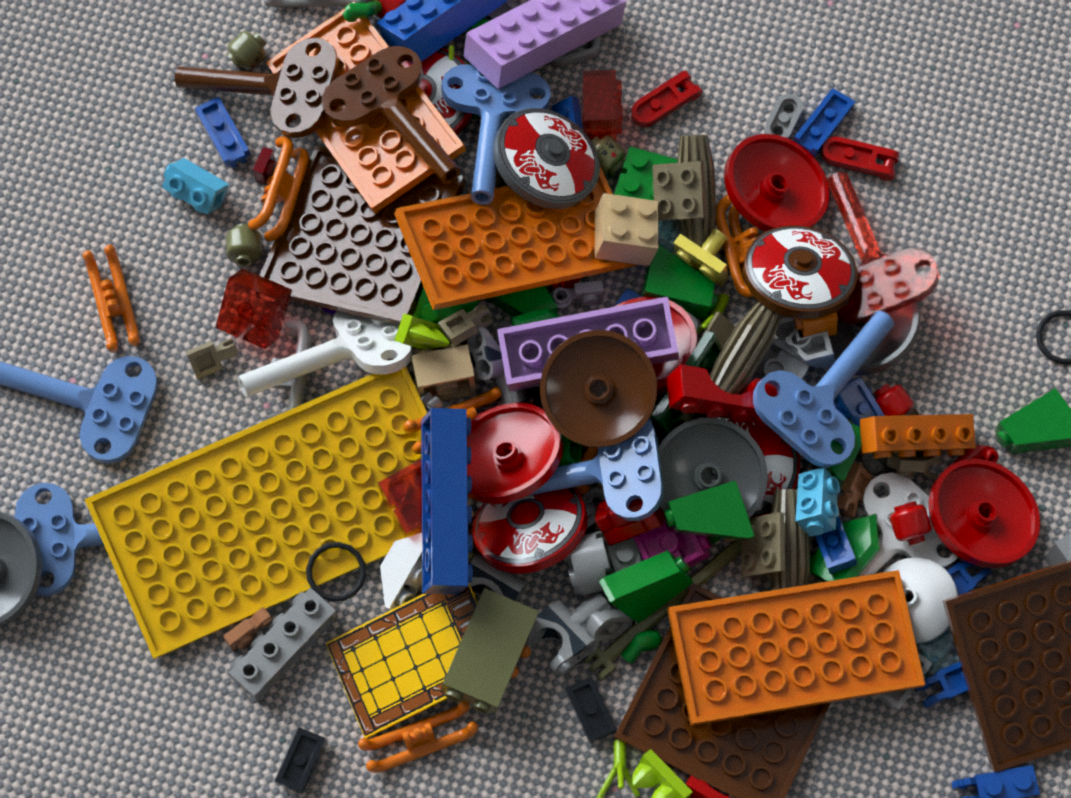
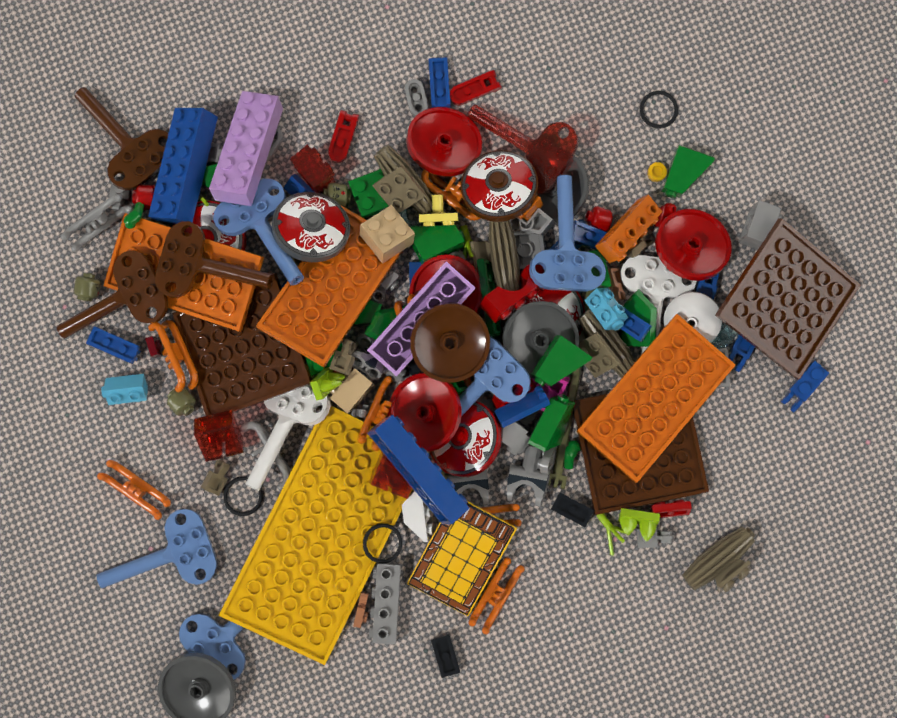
camera: 40 degrees left, 15 degrees up
(214, 424) = (227, 503): none -> black piece
(489, 651) = (501, 526): olive panel -> none
(626, 535) = (527, 405): none -> blue hinge
(910, 523) = (662, 281): red head -> none
(1006, 403) = (657, 172): none -> yellow tile

